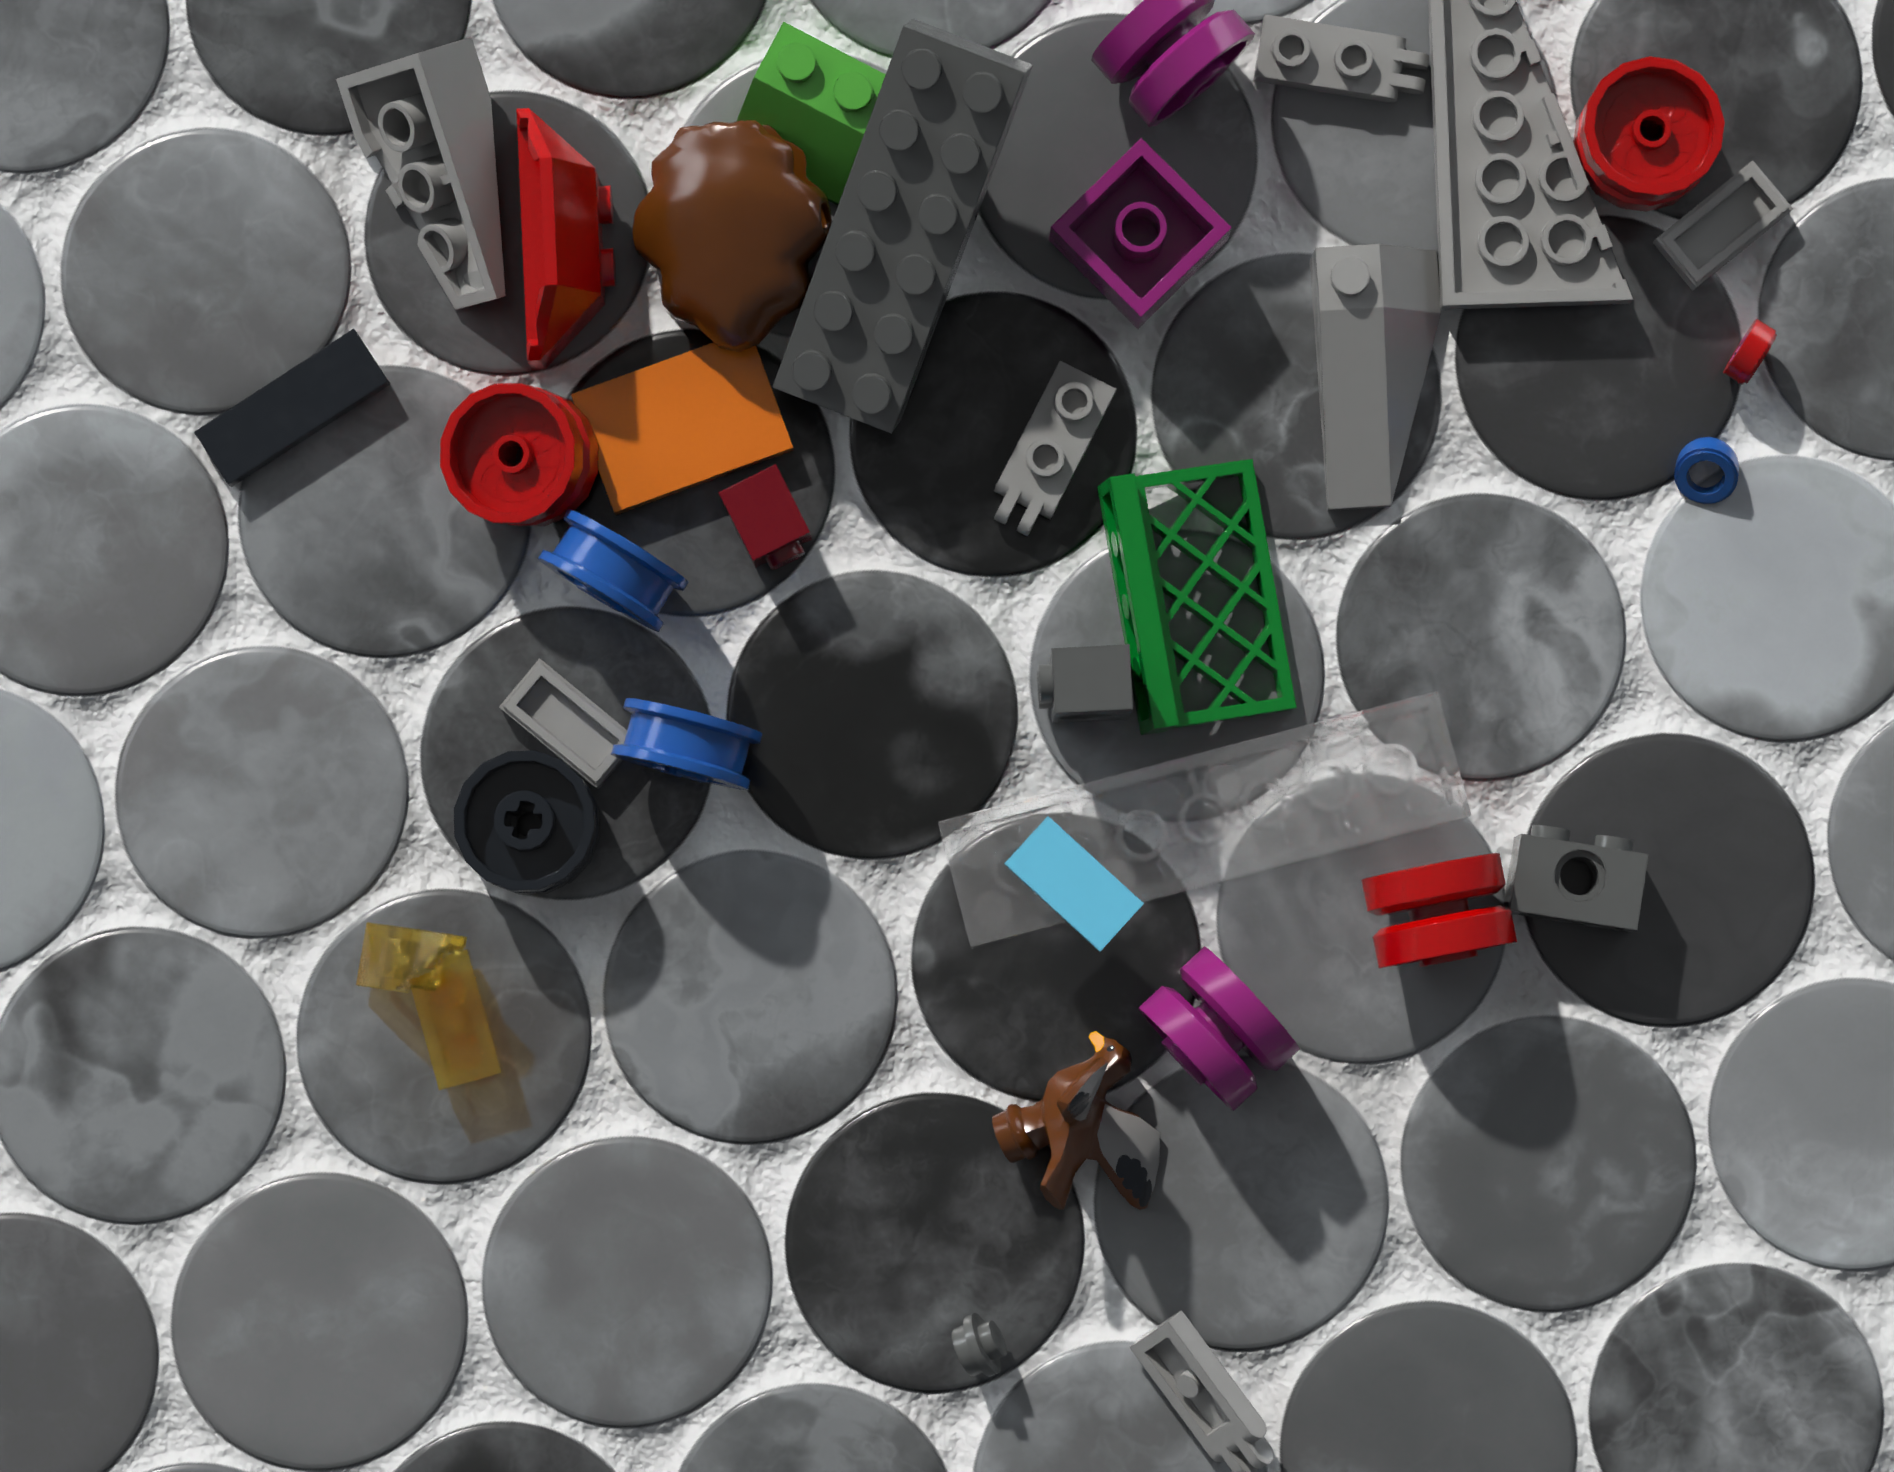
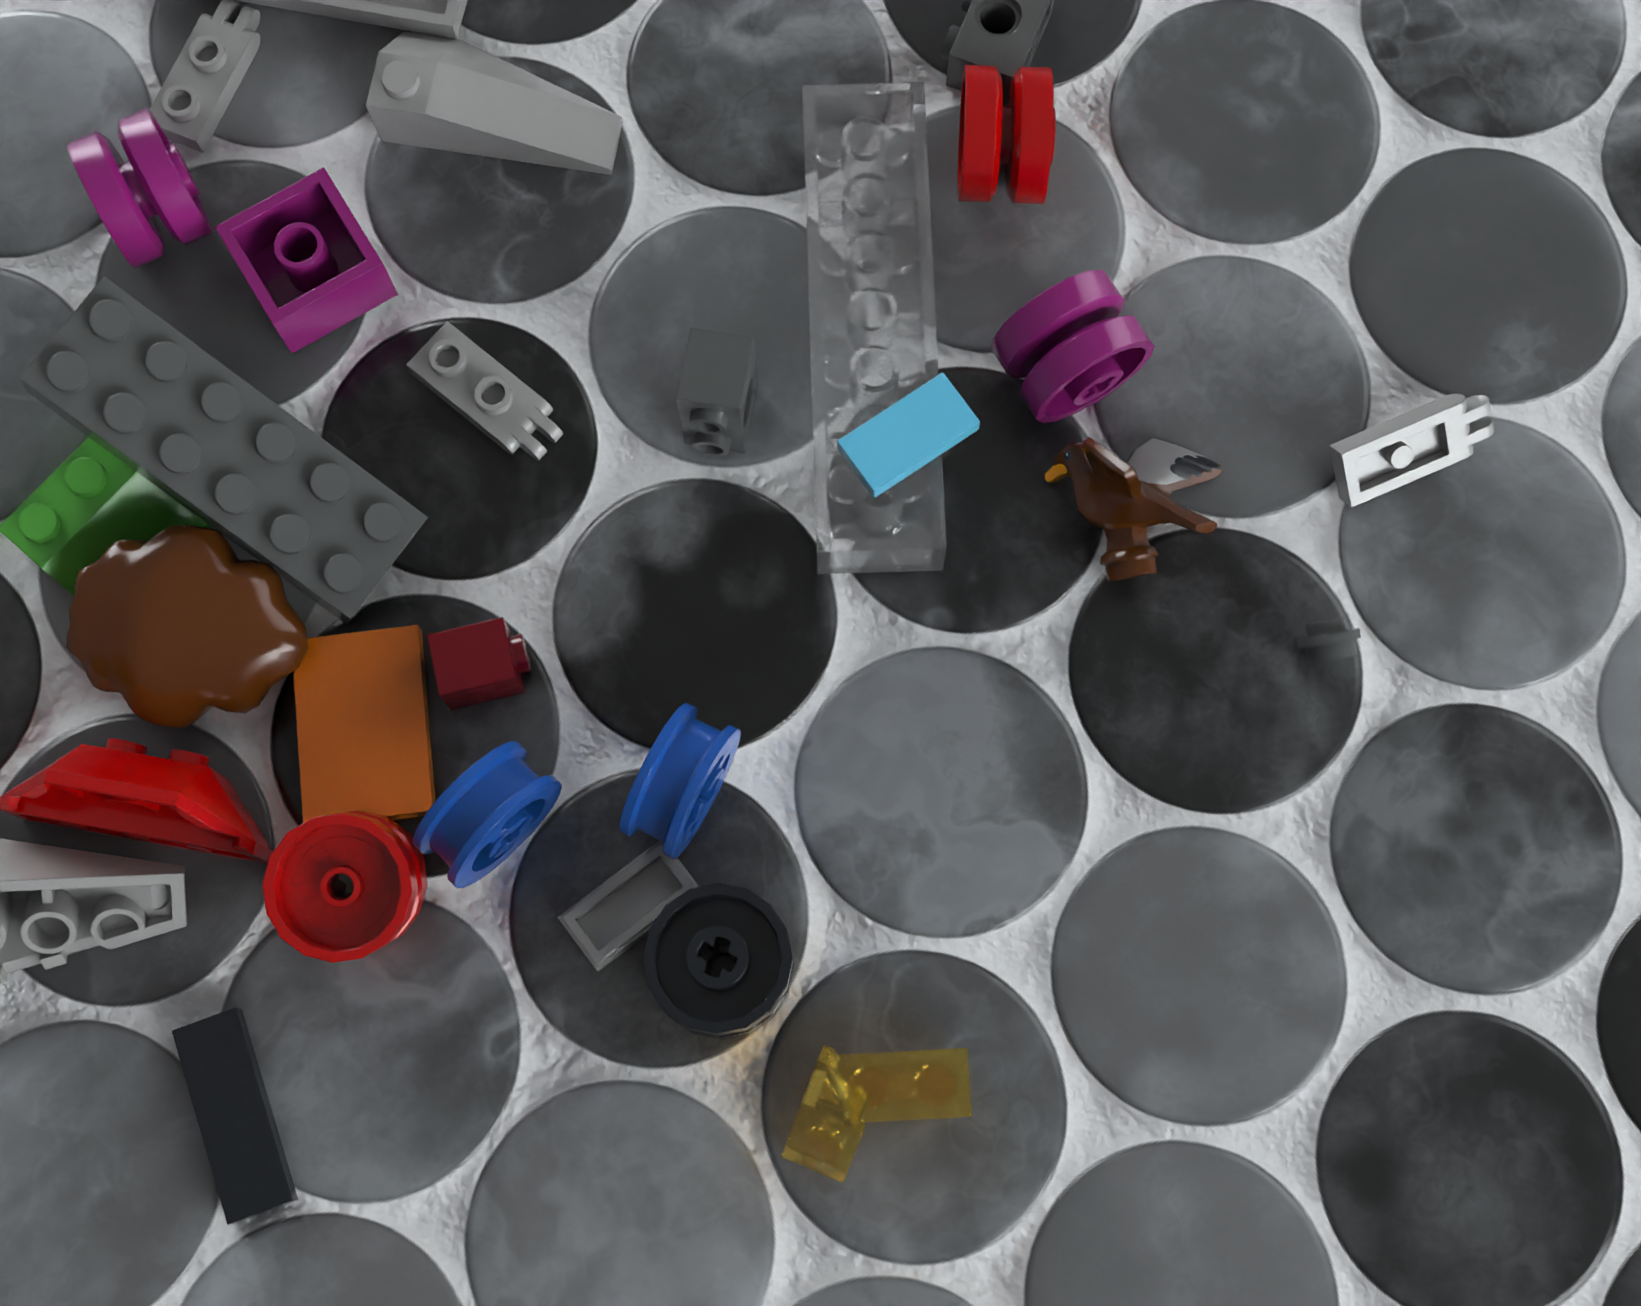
camera: 75 degrees left, 10 degrees down
(1143, 604) = (654, 335): green fence -> none

